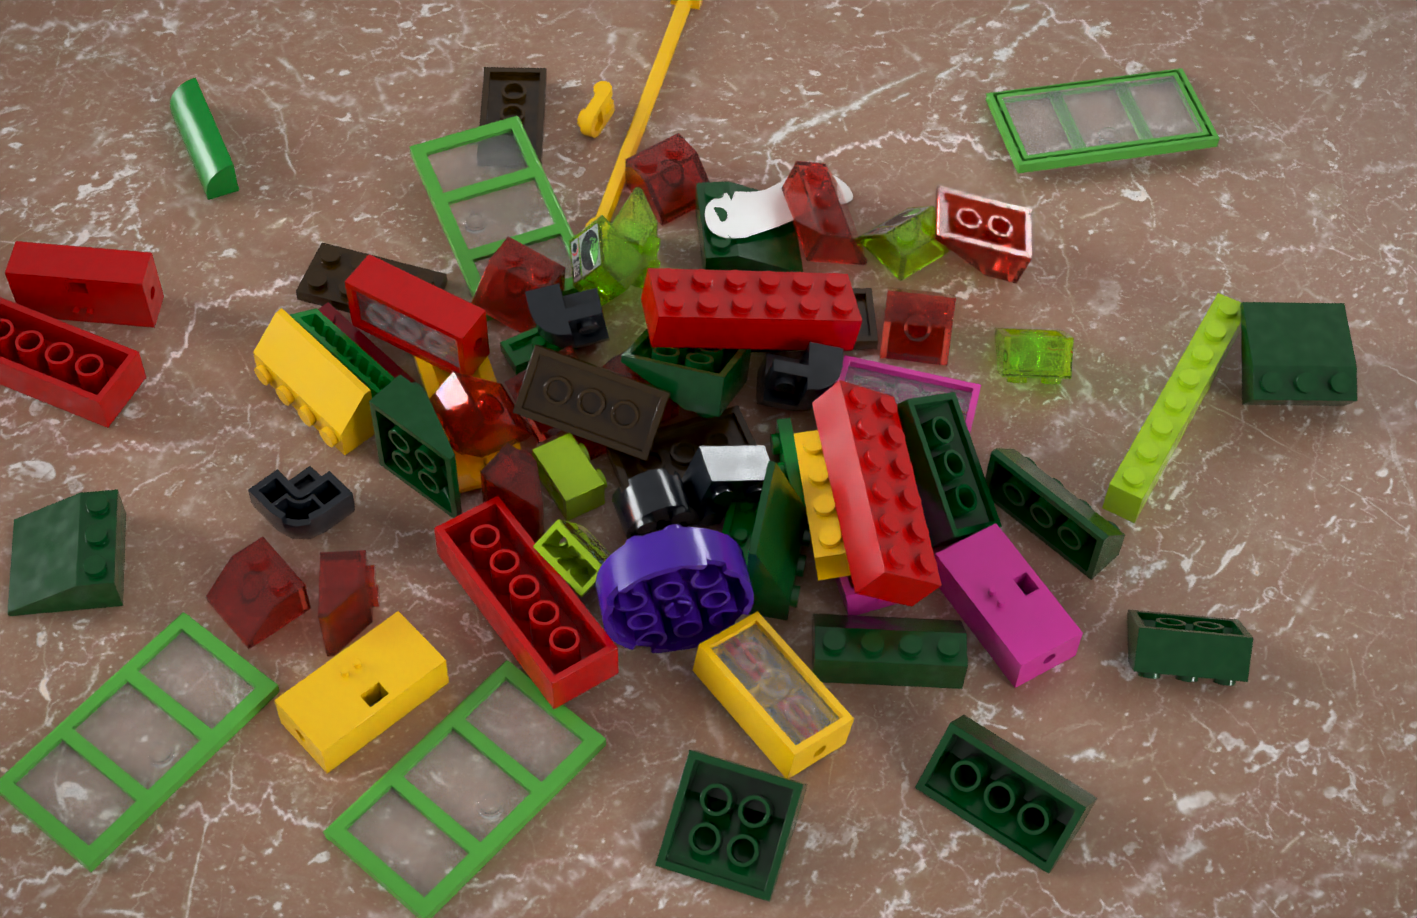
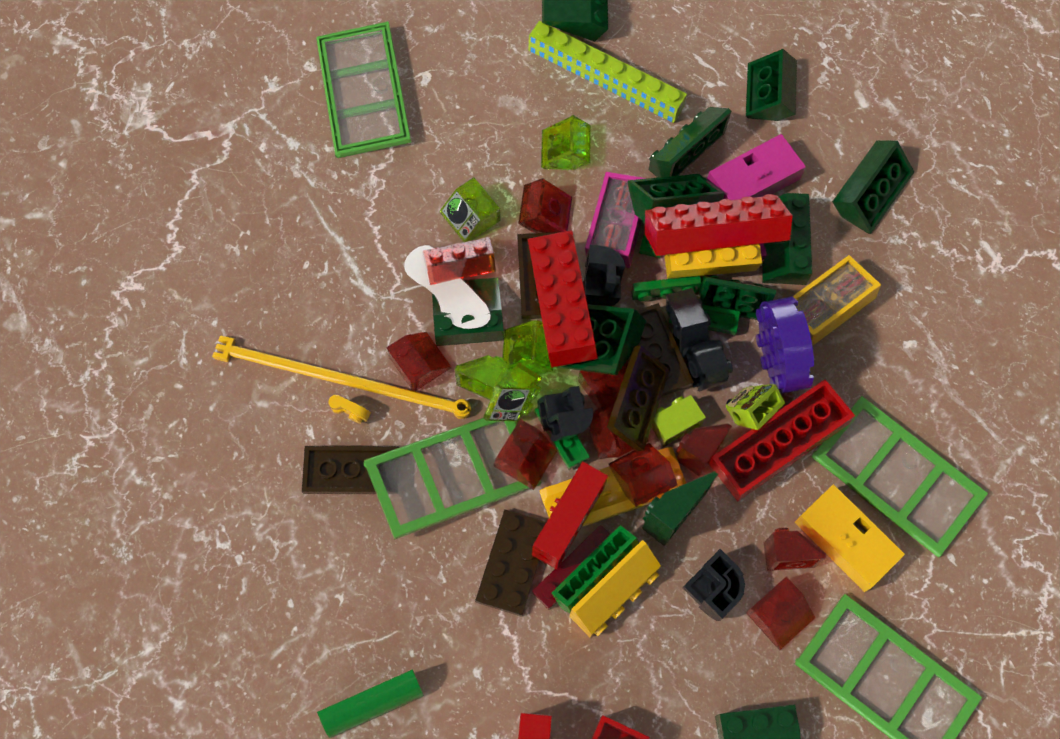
camera: 90 degrees left, 15 degrees up
(731, 824) = (908, 325): dark green slope -> none
(984, 233) = (480, 158): clear red slope -> none

